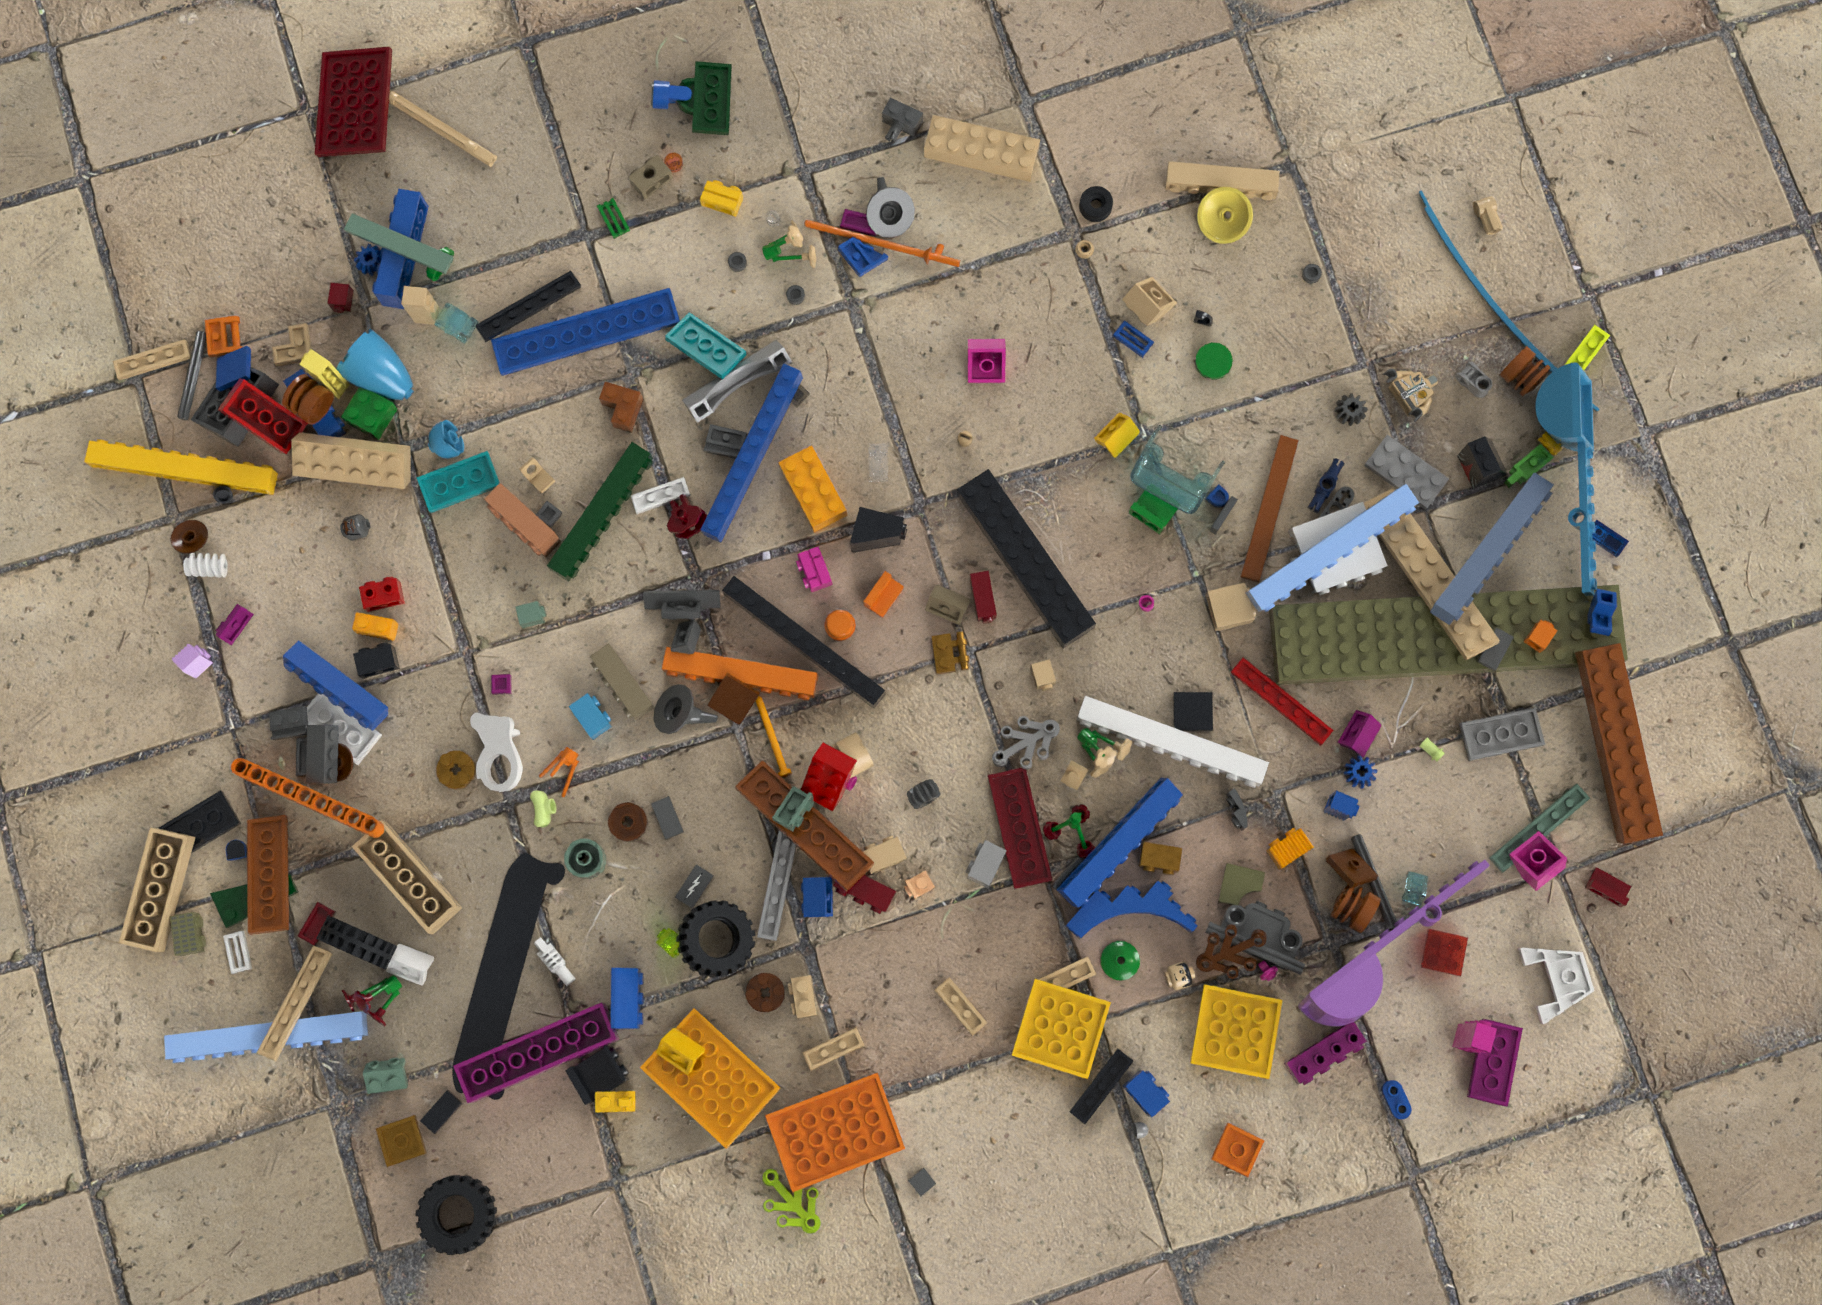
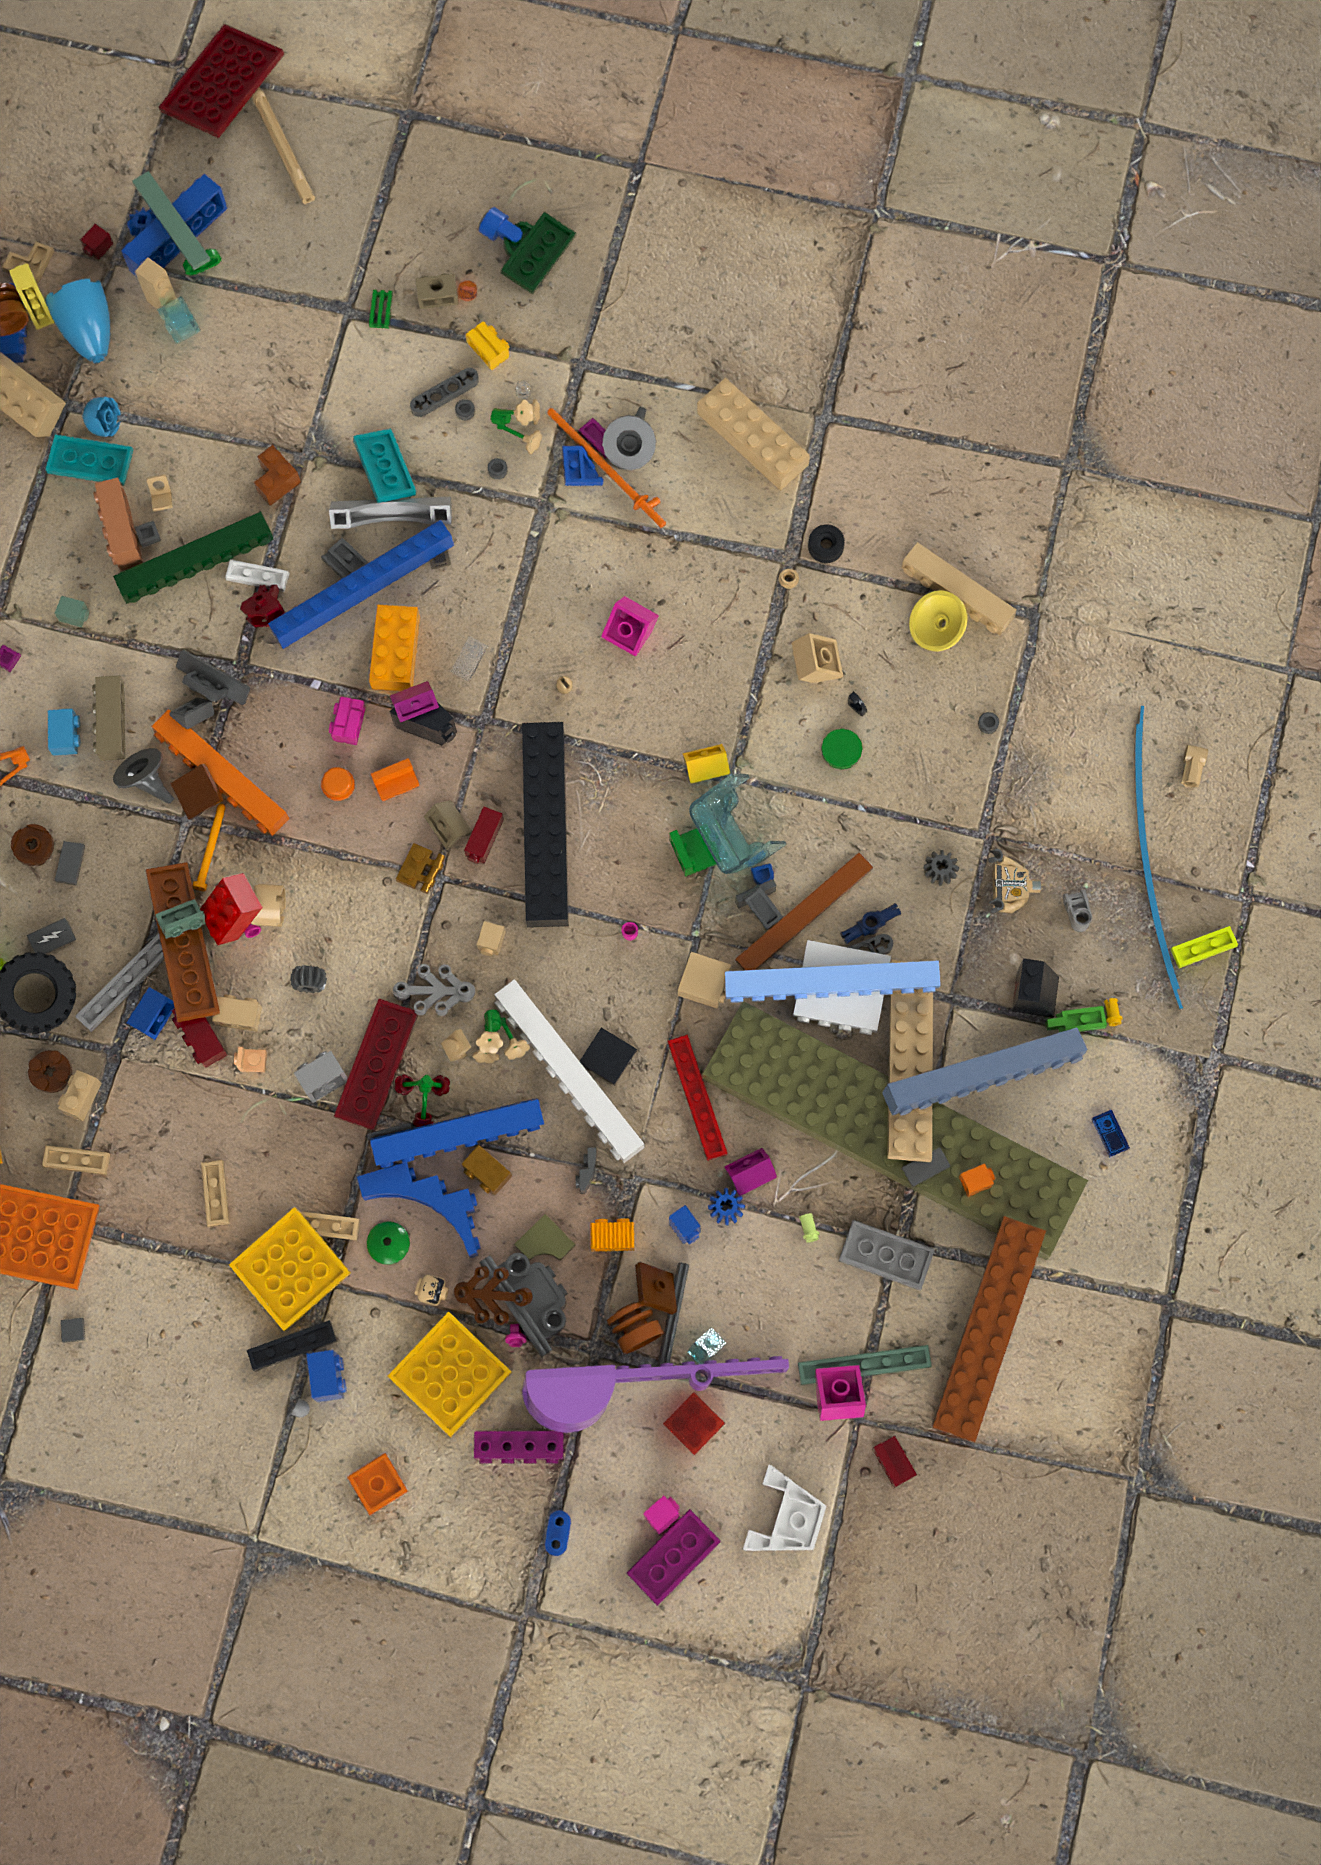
camera: 30 degrees right, 5 degrees down
(369, 413) = (53, 355): green brick -> none
(528, 306) = (252, 342): black tile -> none
(585, 331) = (288, 393): blue plate -> none
(712, 257) = (442, 389): none -> dark grey beam
(804, 642) = (294, 780): black brick -> none
(865, 522) = (414, 701): none -> magenta panel
(901, 118) = (696, 365): dark grey brick -> none
(1130, 345) = (785, 701): blue tile -> none
(1237, 522) = (762, 907): none -> dark grey tile
(1401, 466) = (957, 957): light grey plate -> none
(1525, 371) = (1129, 926): dark orange wheel -> none
(1566, 414) = (1144, 991): dark azure plate -> none
(1601, 612) = (1049, 1193): blue brick -> none

